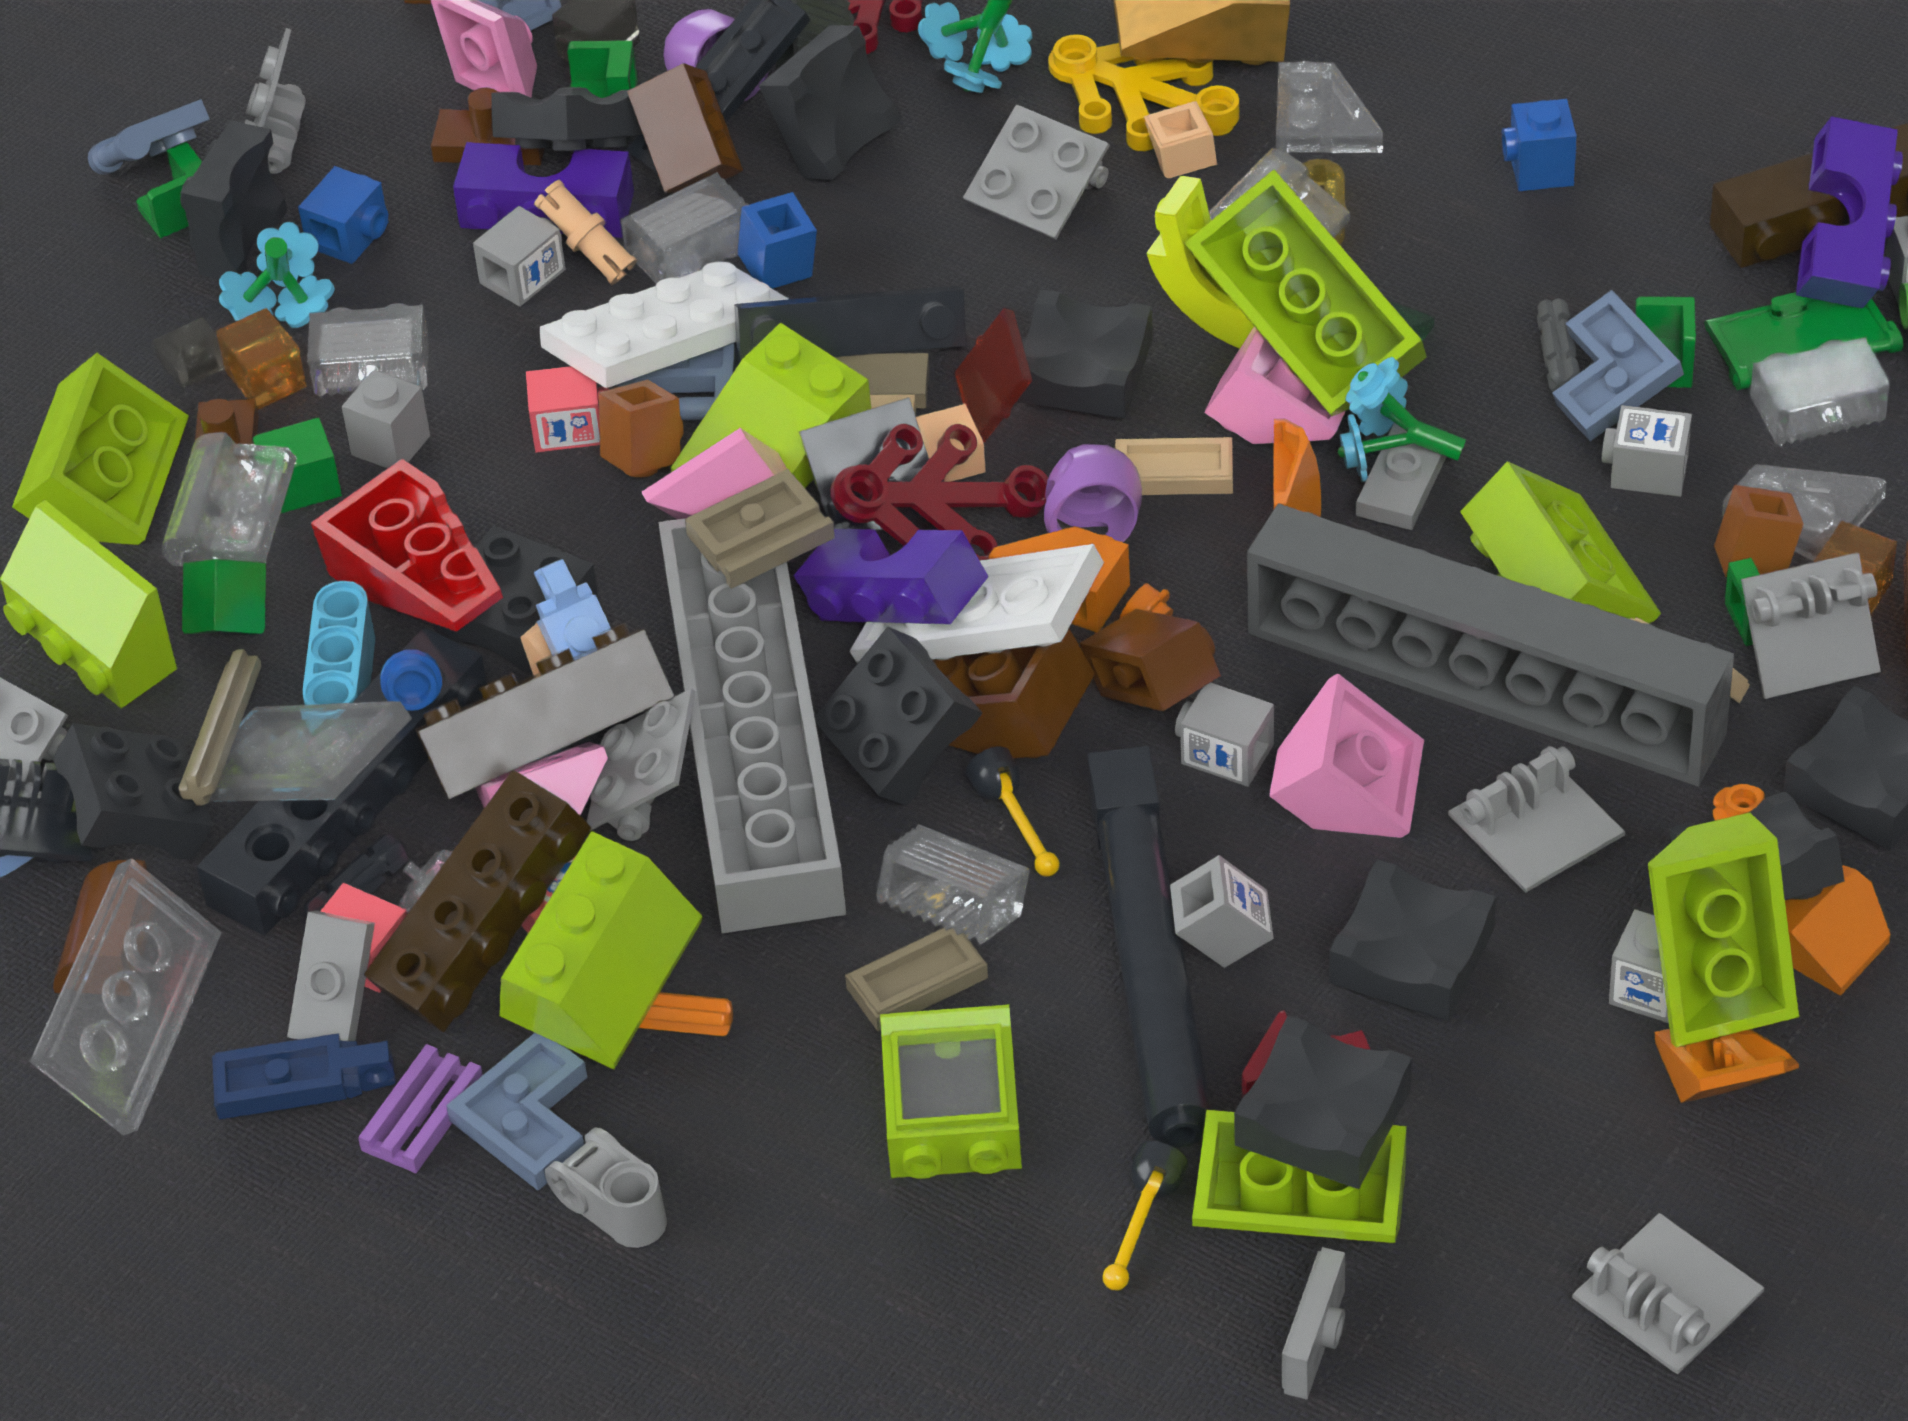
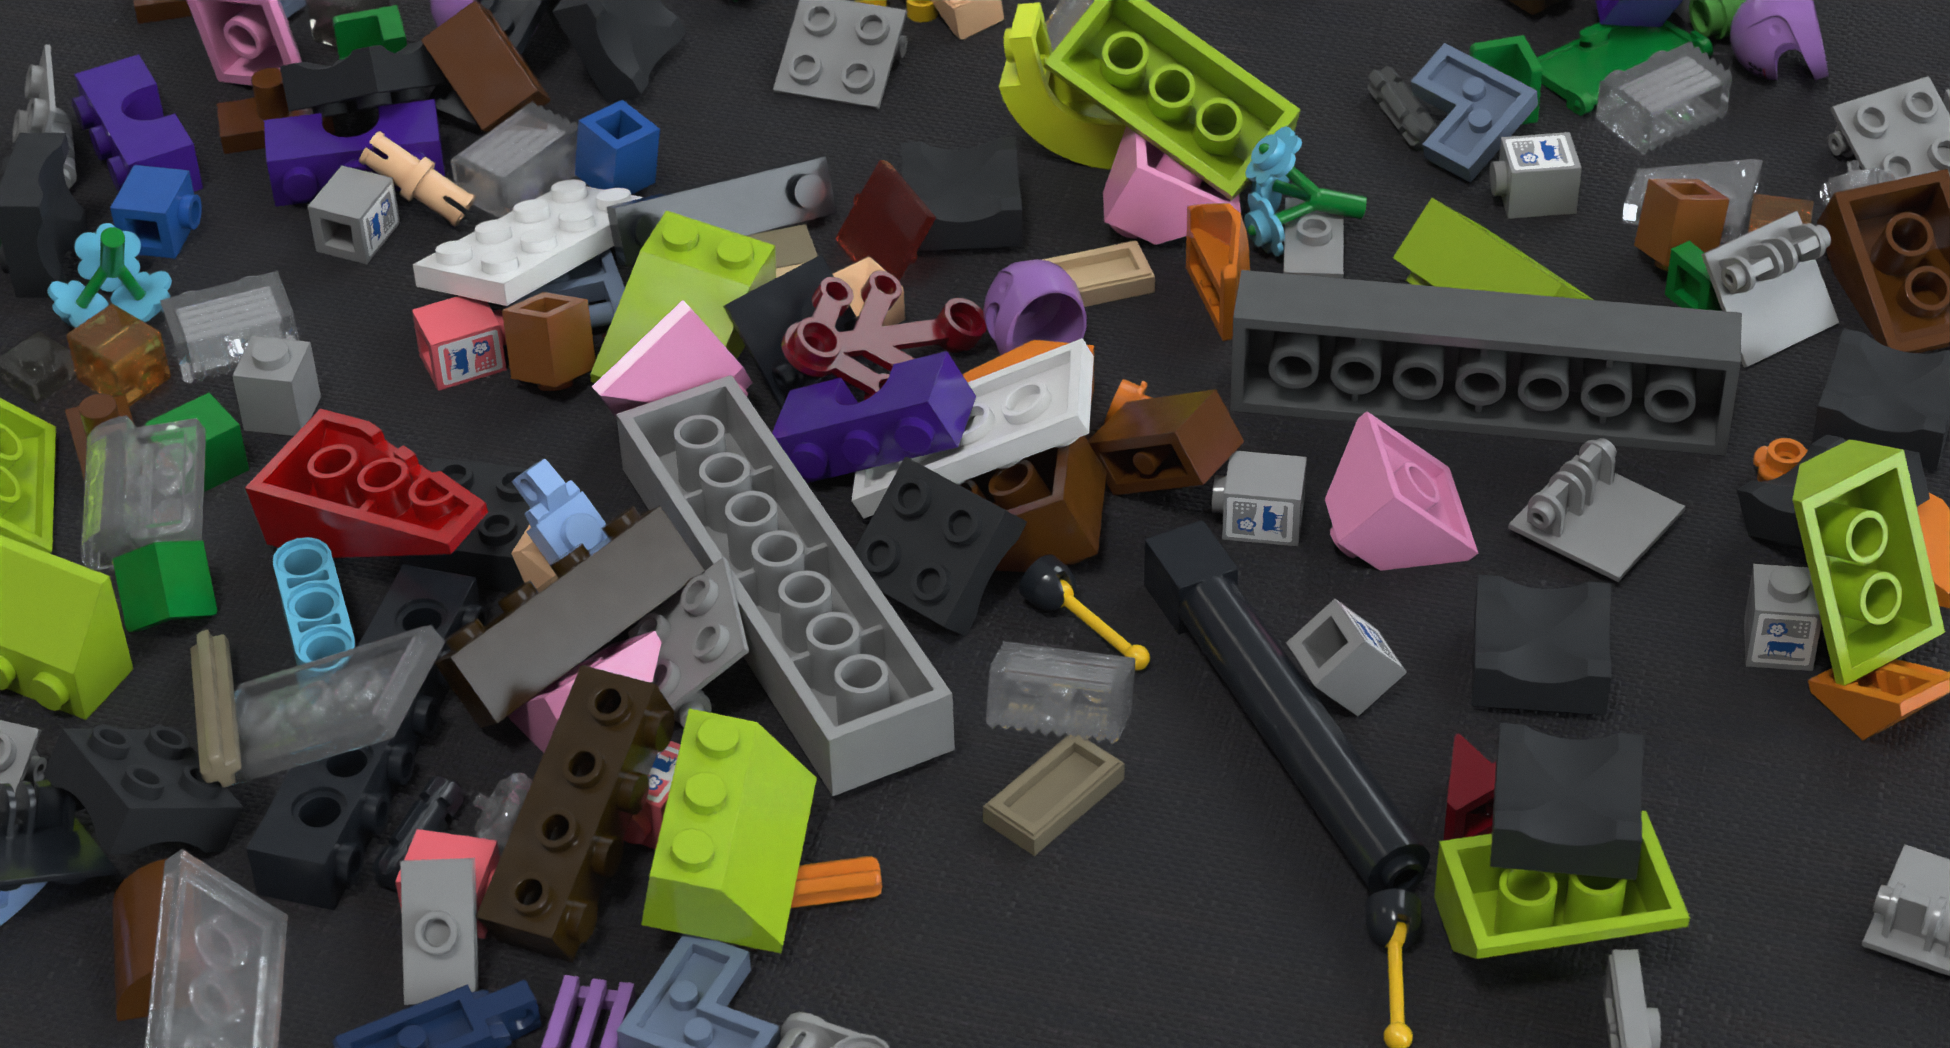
camera: 20 degrees left, 5 degrees down
(354, 117) = (128, 122): none -> dark purple arch
(411, 679) = (416, 605): blue plate -> none
(759, 528) = (730, 395): dark tan plate -> none
(950, 1092) = (1147, 893): lime window -> none

